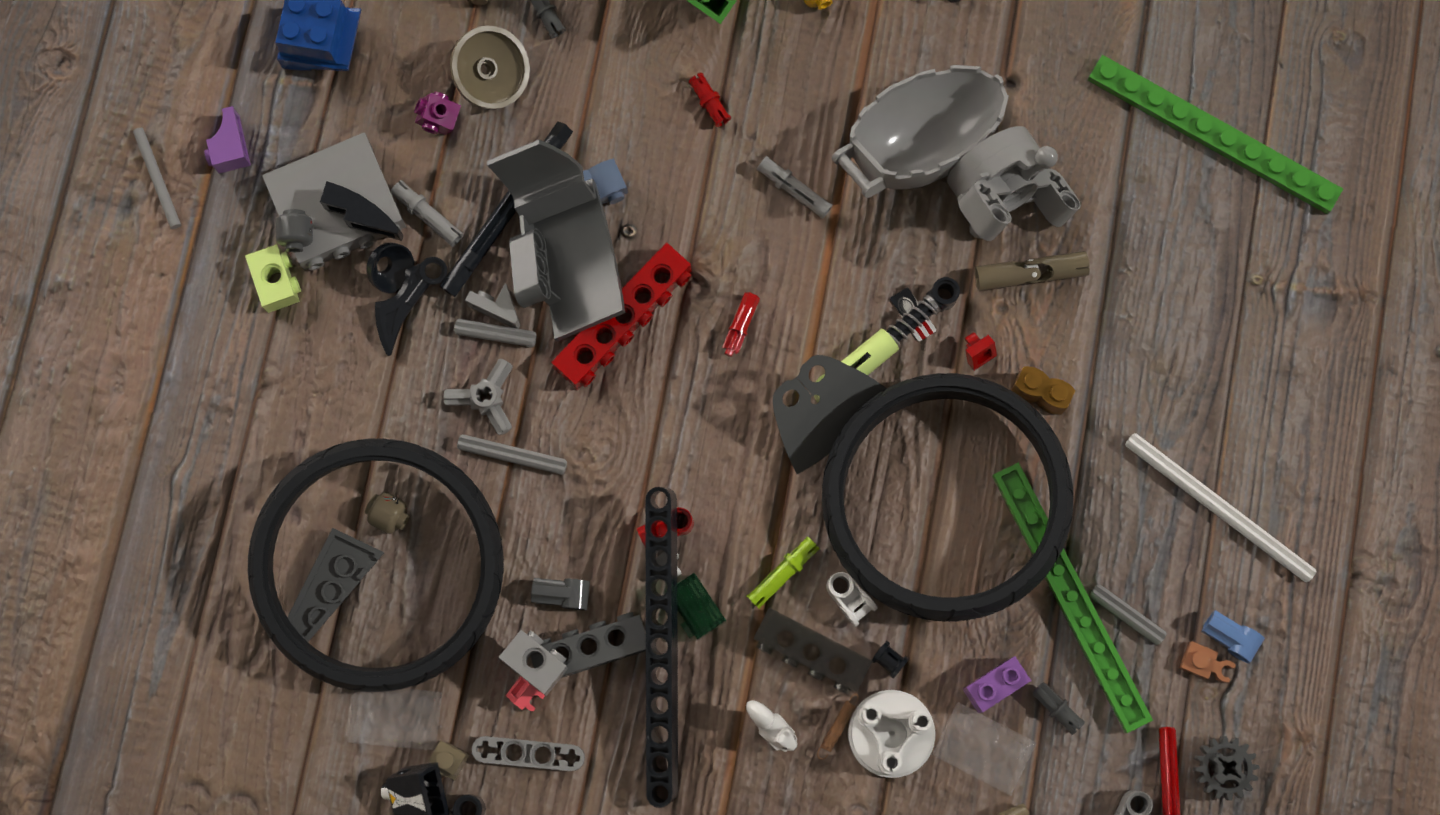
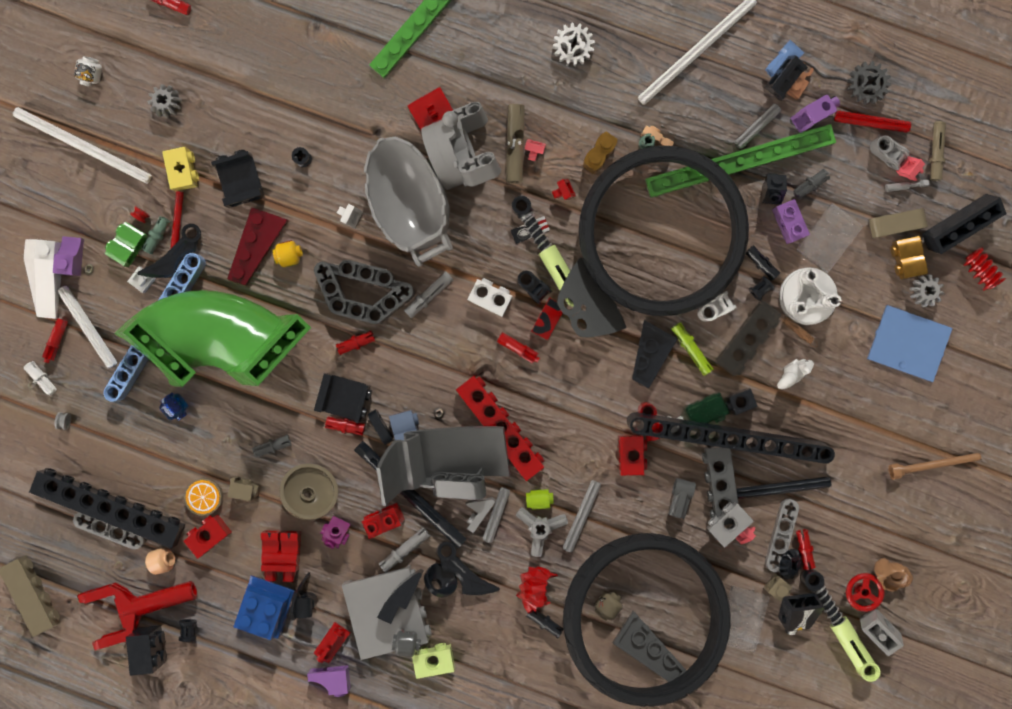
camera: 80 degrees left, 10 degrees up
(279, 135) = (331, 643): none -> red hinge
(333, 79) = (302, 602): none -> black panel
(351, 424) = (546, 623): none -> black pin
(397, 46) = (280, 554): none -> red hips
(399, 398) = (534, 588): none -> red hair
(464, 174) = (381, 522): none -> red hips
(486, 762) = (790, 564): none -> black gear
(512, 792) = (805, 549): none -> red pin
(527, 388) = (539, 499): none -> lime brick
(589, 104) = (345, 426): none -> red pin
(597, 503) = (626, 444): none -> red brick
(598, 150) = (380, 427): none -> black beam
(599, 744) = (784, 487): none -> black axle
(629, 94) = (343, 397): none -> black panel
(717, 669) = (749, 401): none -> black brick
(766, 516) = (652, 353): none -> black wing
(786, 357) = (548, 319): none -> slope
(800, 270) = (488, 301): none -> white brick
(806, 85) = (356, 274): none -> dark grey piece
(830, 333) = (534, 287): none -> black piece
(886, 62) = (350, 215): none -> white tile
(928, 654) = (762, 263): none -> black pin
(1030, 299) = (534, 147): none -> coral tile
(1040, 650) = (774, 189): none -> black brick
(1069, 150) = (430, 108): none -> red piece
(1073, 449) = (646, 138): none -> sand green pin
(1084, 462) = (659, 139): none -> light nougat plate
(1165, 693) = (815, 113): none -> medium lavender torso
(1192, 317) = (580, 47): none -> white gear
(1207, 638) = (785, 77): none -> black hinge

